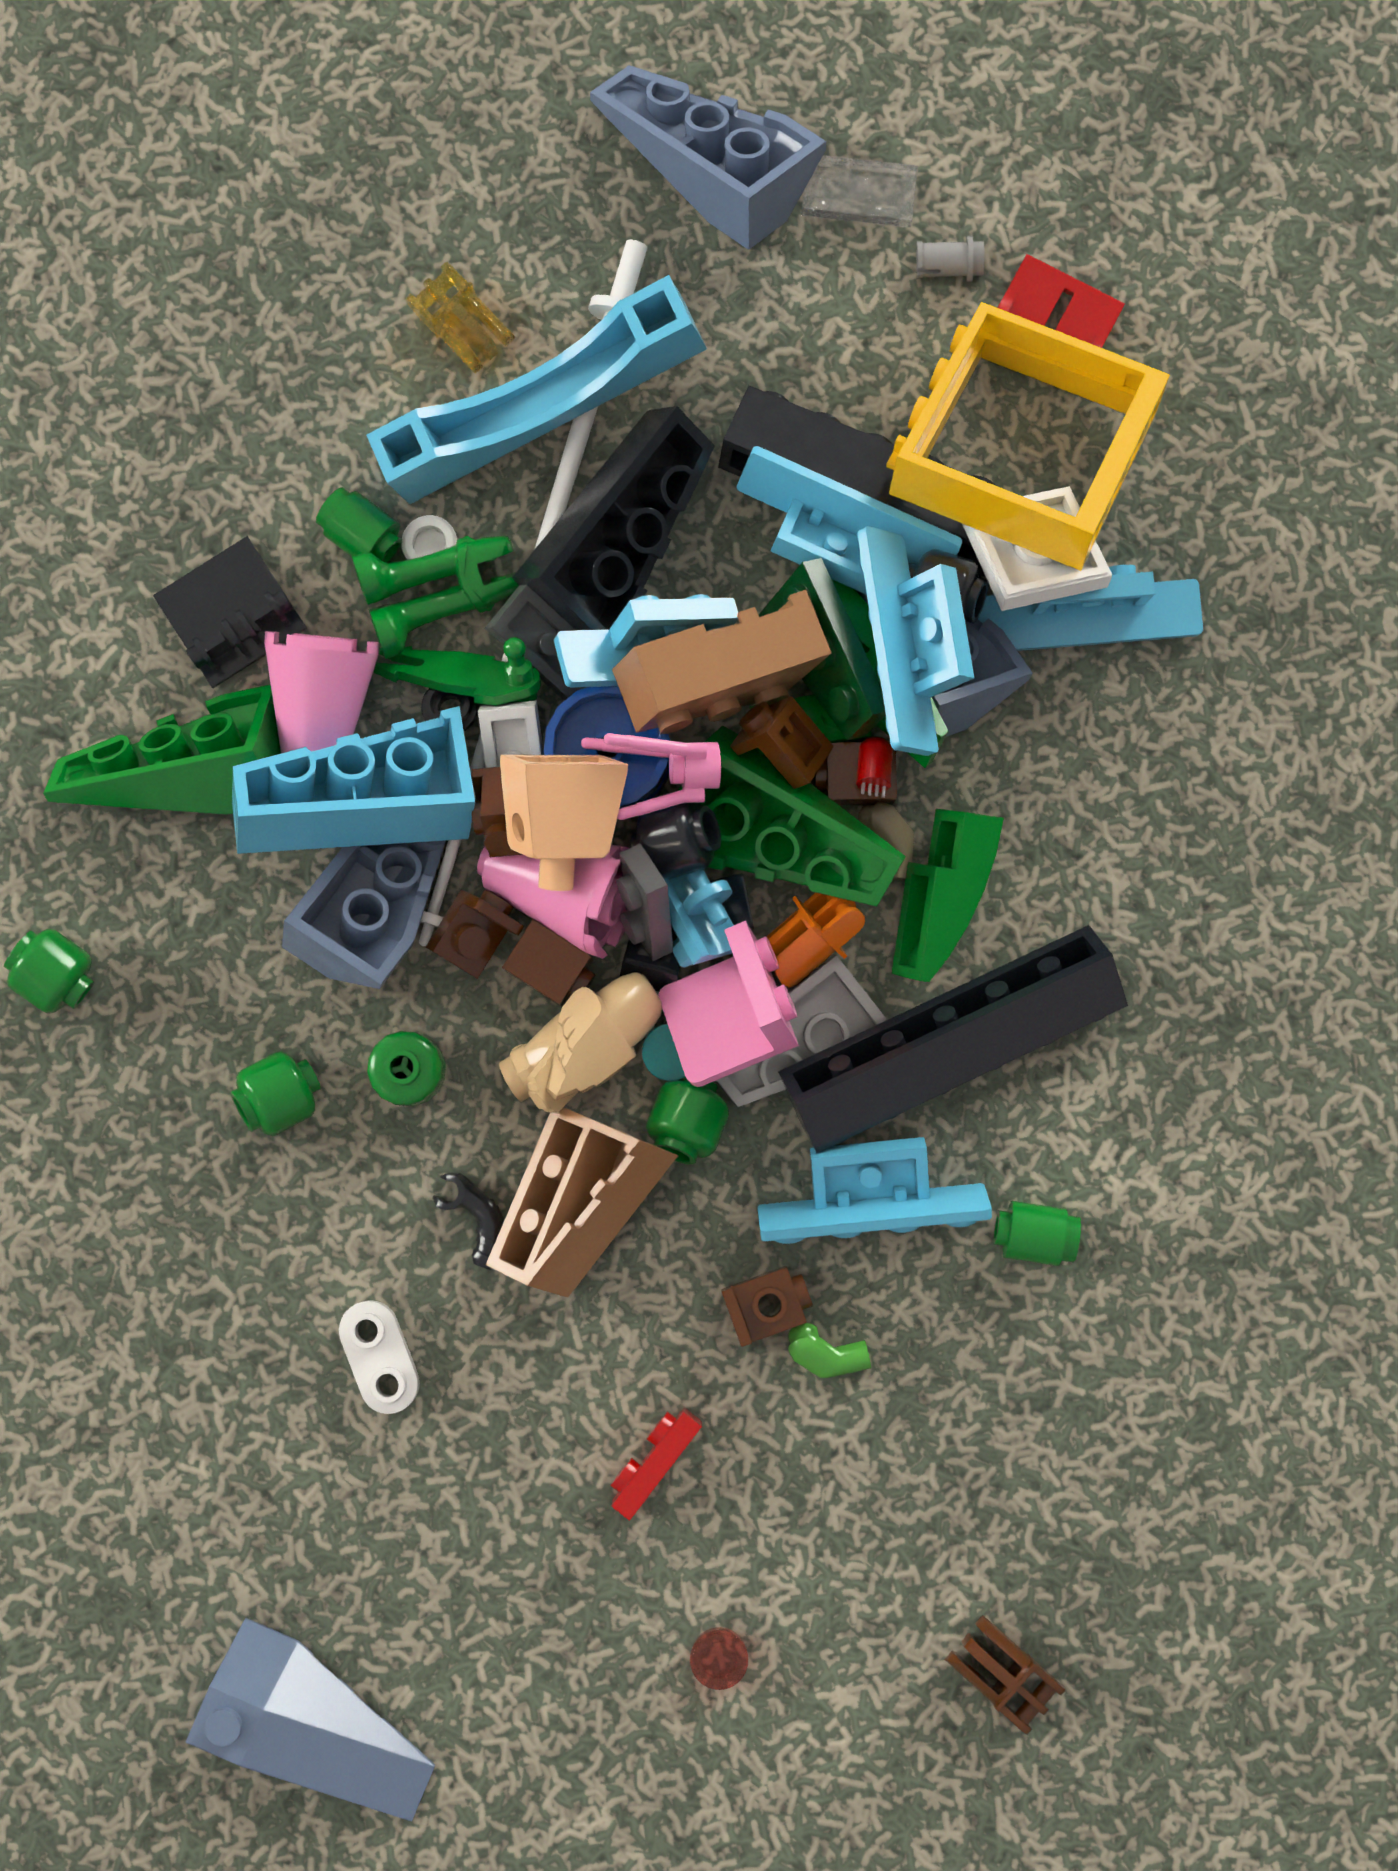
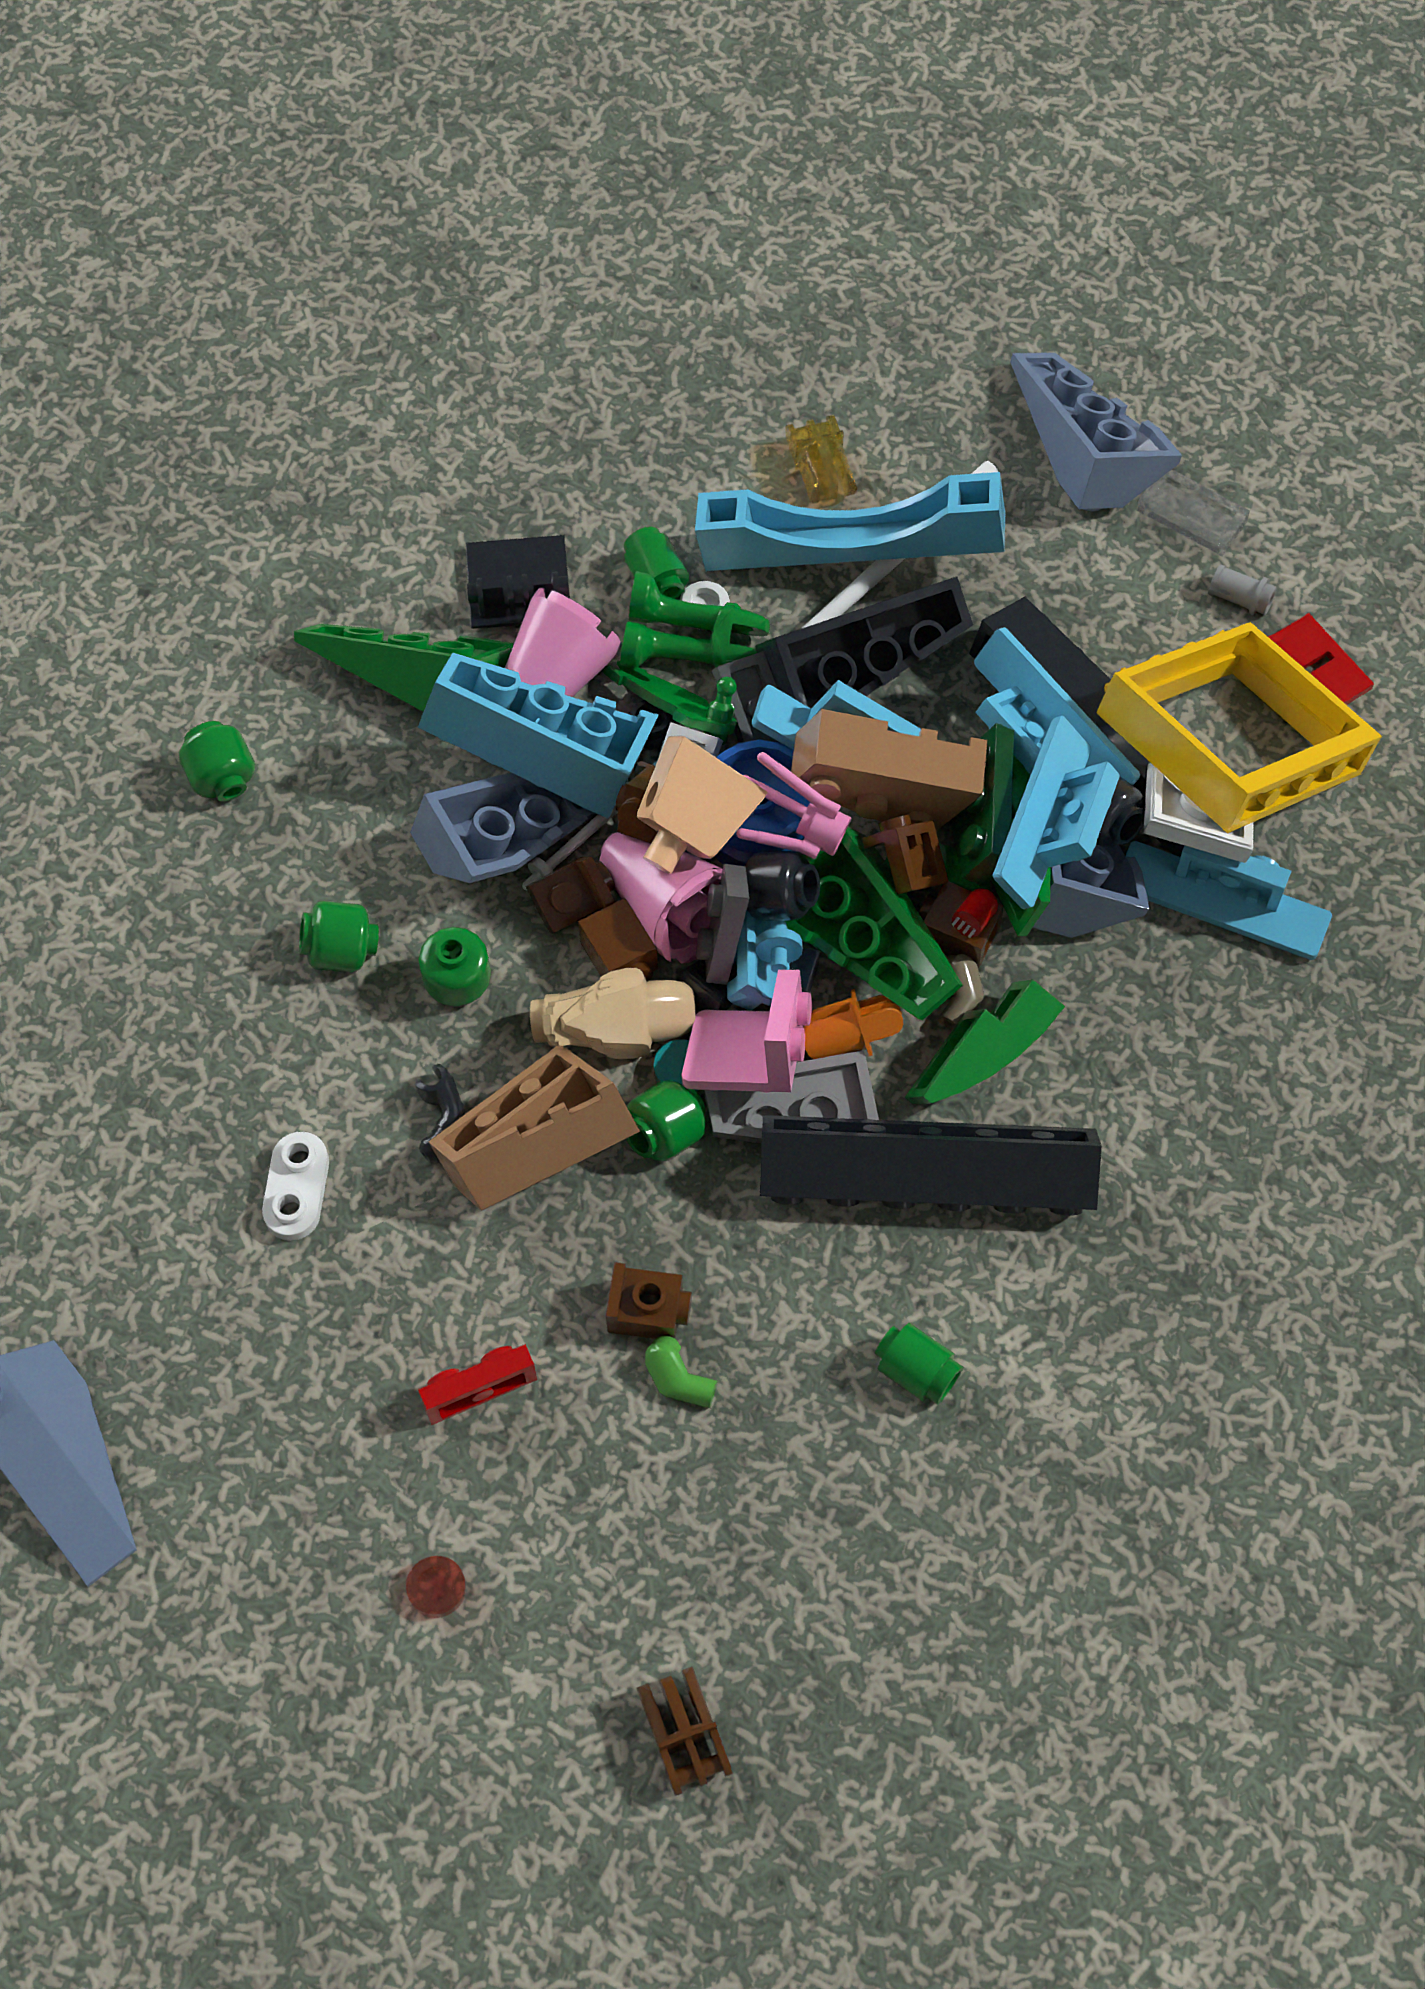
camera: 25 degrees right, 20 degrees down
(872, 1190) = (793, 1251): medium azure bracket -> none

